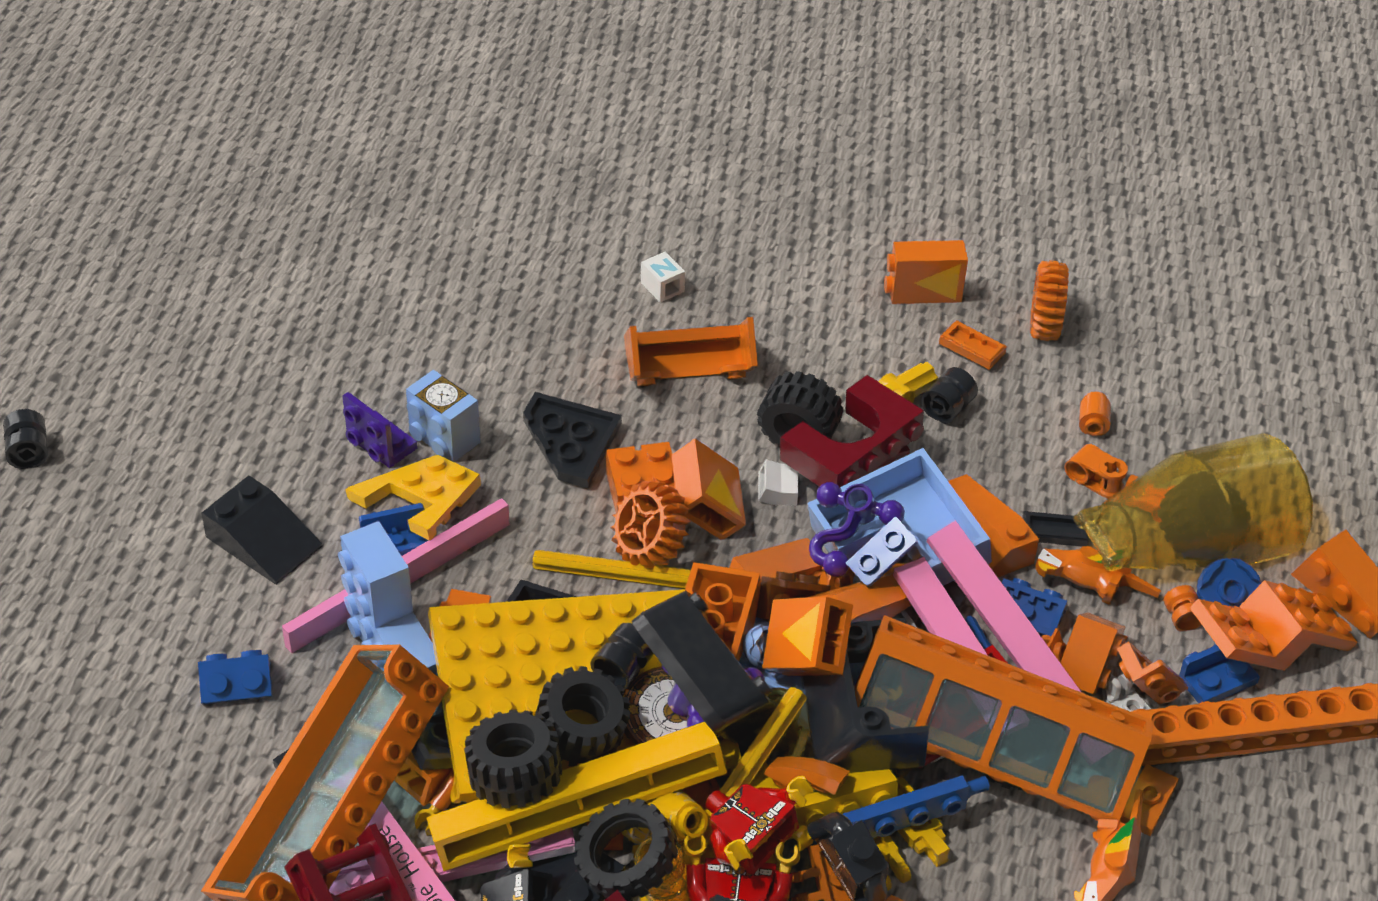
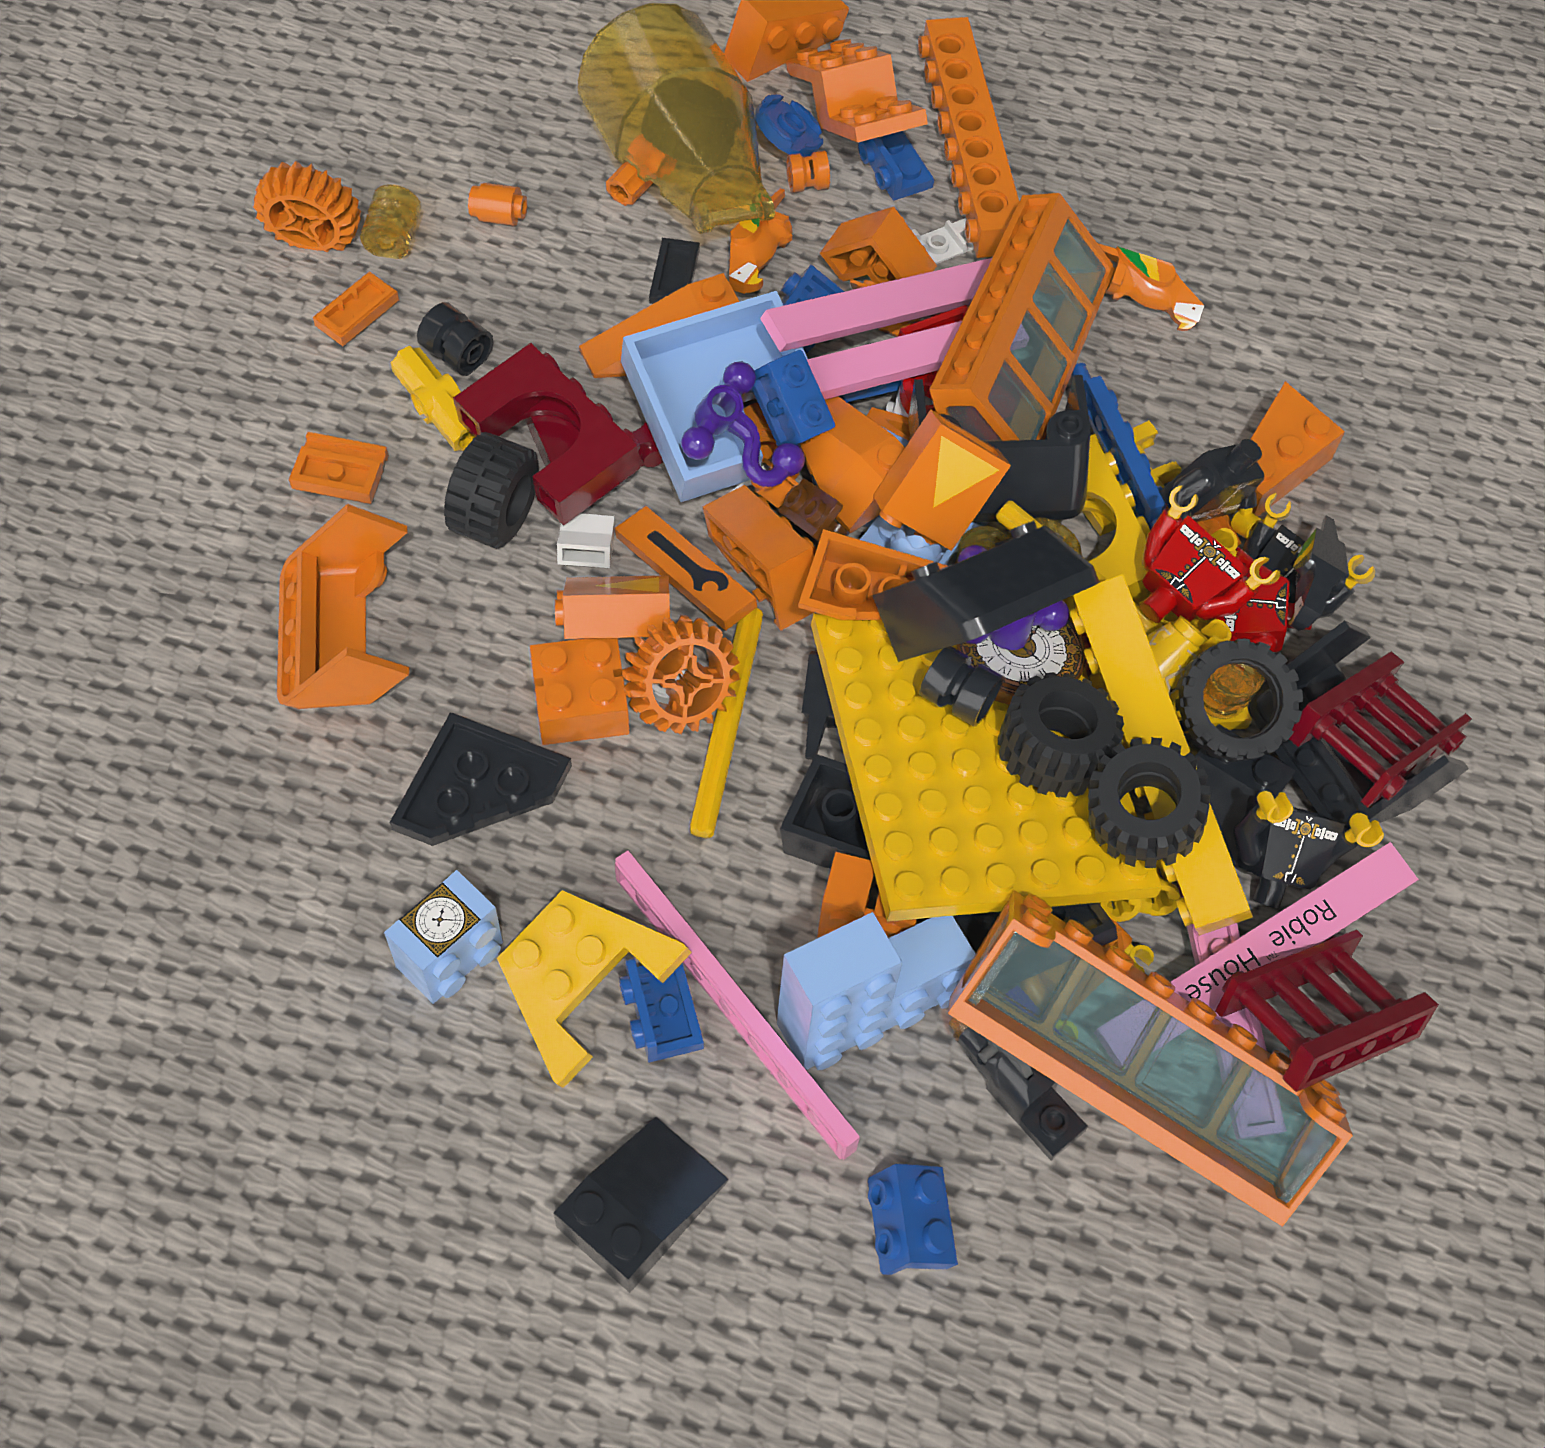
camera: 90 degrees left, 15 degrees up
(375, 433) = (454, 1039): dark purple bracket -> none
(662, 277) = (164, 650): white brick -> none
(763, 533) = (687, 568): none -> orange tile
(821, 774) = (1099, 520): orange slope -> none
(824, 347) = (339, 467): none -> orange plate
(926, 272) = (230, 327): orange brick -> none
(1066, 353) = (390, 221): none -> clear yellow wheel
(1095, 468) = (592, 213): orange piece -> none
(1152, 678) = (933, 202): orange bracket -> none

